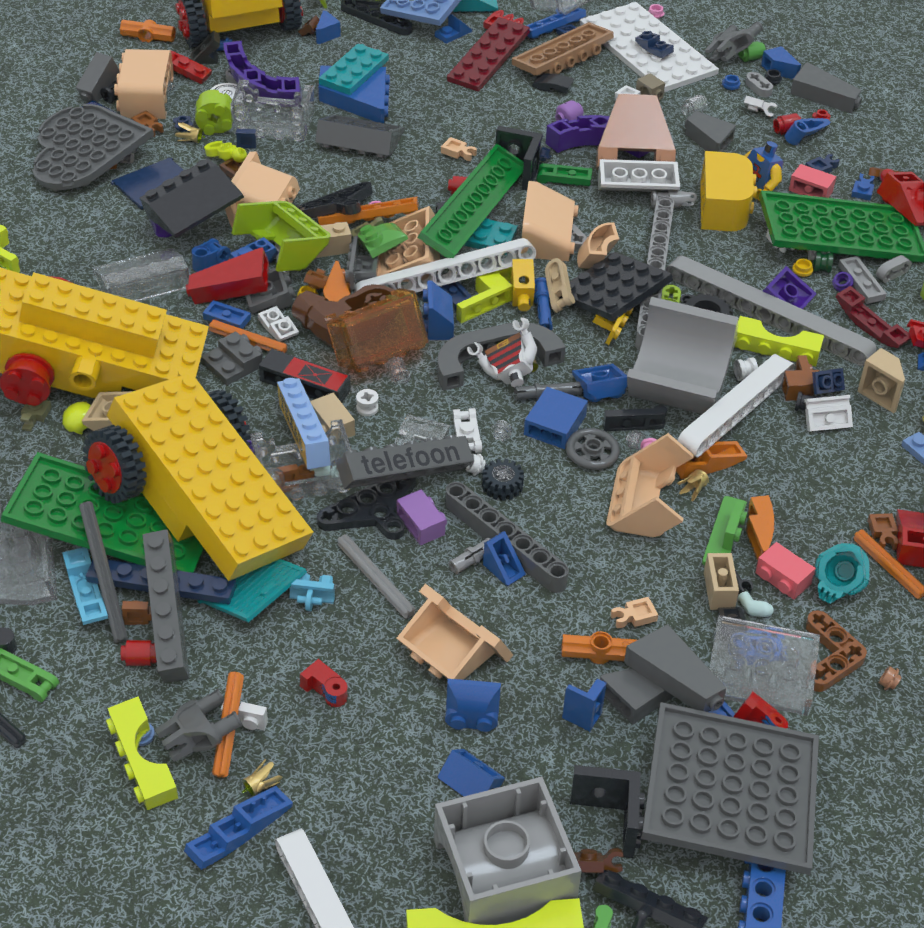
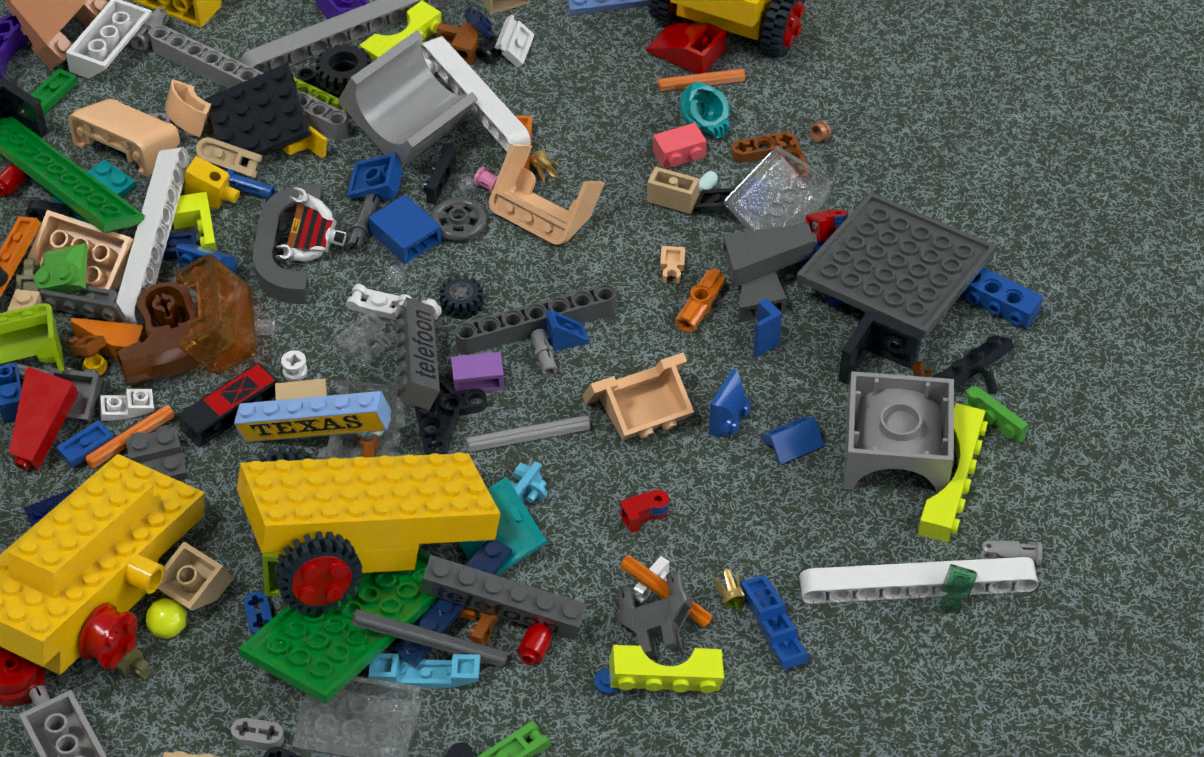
camera: 65 degrees left, 5 degrees up
(726, 526) = (611, 163): bright green bracket -> none
(760, 524) = (623, 141): orange slope -> none
(885, 528) = (663, 65): dark orange plate -> none

